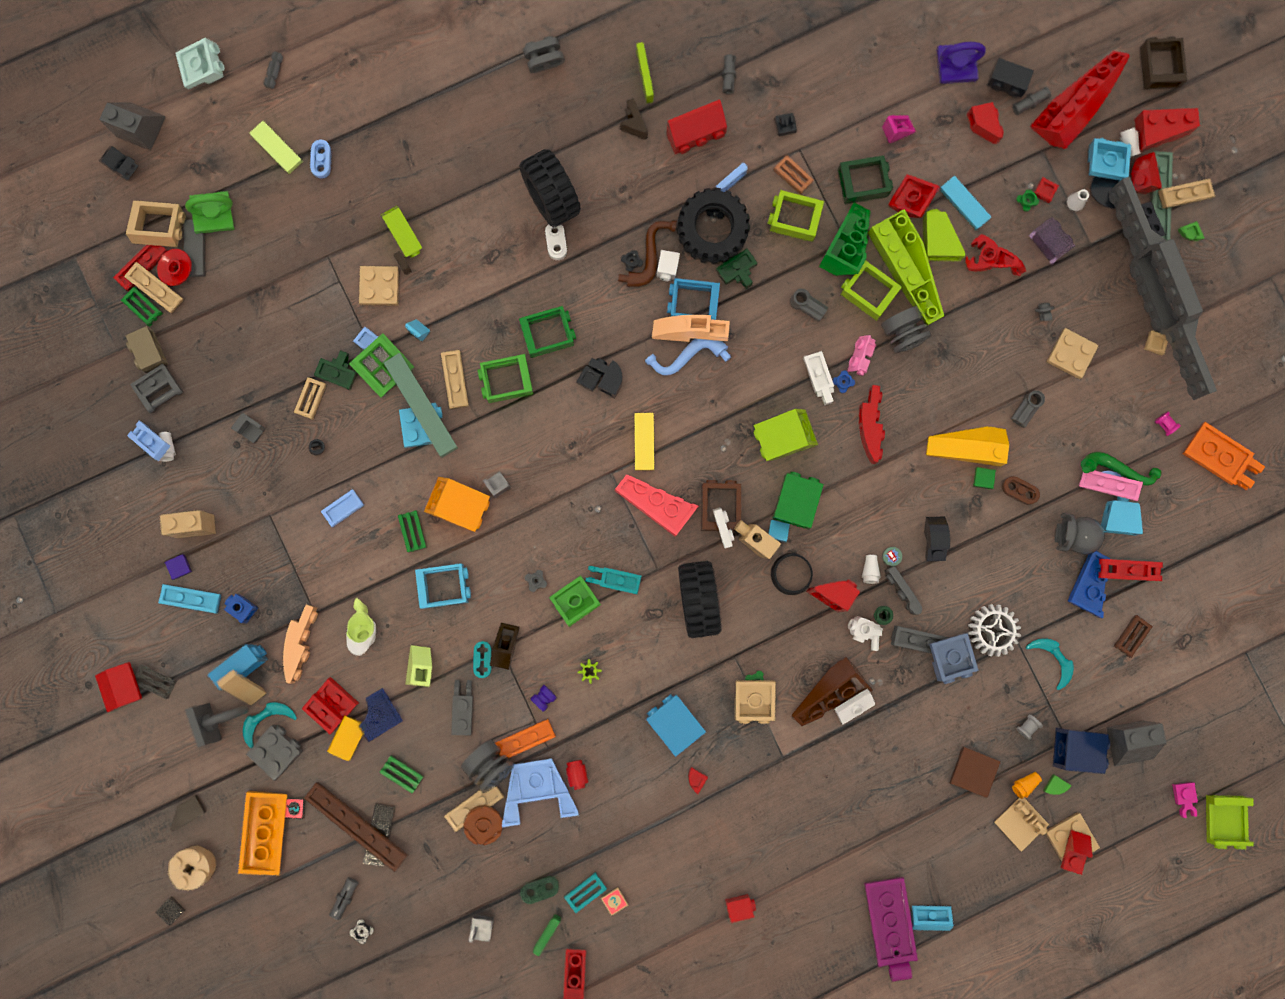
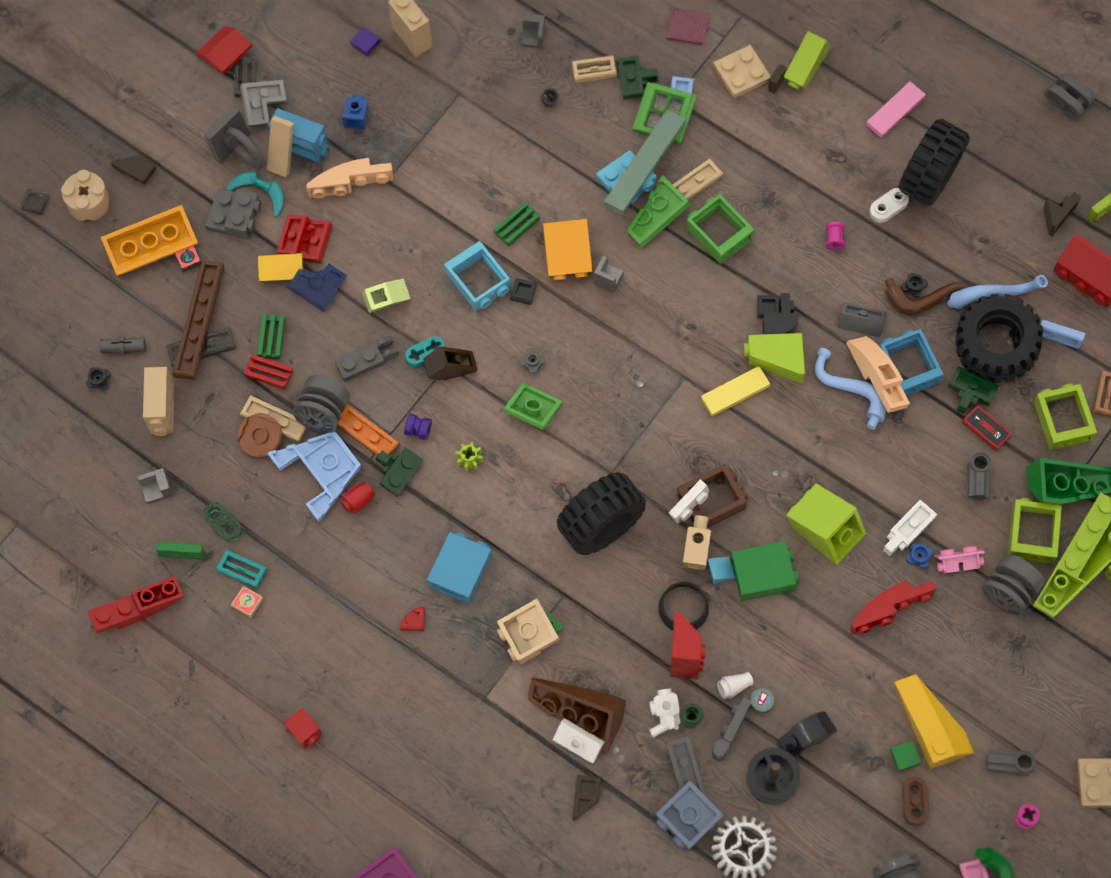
camera: 75 degrees right, 15 degrees down
(180, 682) = (255, 98): none -> light grey plate
(190, 598) = (340, 67): medium azure tile -> none
(314, 304) = (688, 26): none -> clear pink piece
(342, 508) = (503, 151): light blue tile -> none
(360, 630) = (394, 224): yellowish green hair -> none
(412, 894) = (158, 400): none -> tan brick
(417, 329) = (719, 126): medium azure slope -> none
(418, 802) = (272, 364): none -> red tile
(466, 416) = (662, 208): none -> bright green wing
(472, 556) = (523, 291): none -> black tile
(479, 189) = (895, 109): none -> bright pink tile
(542, 316) = (775, 226): green window -> none
(560, 295) = (835, 235): none -> dark pink bush
(570, 731) = (398, 469): none -> dark green hinge
(616, 580) = (577, 435): teal hinge -> none
(634, 393) = (777, 354): none -> lime slope
(637, 315) = (861, 319): none -> dark grey slope
(660, 506) = (677, 441): coral wing -> none
(668, 265) = (931, 319): white brick -> none
(671, 219) = (972, 294): none -> light blue animal
(772, 276) = (987, 428): none -> tile
(895, 721) = (585, 794): none -> dark brown tile
(954, 581) = (773, 776): none -> black wheel
(1075, 416) = (1028, 809): none -> dark pink bush

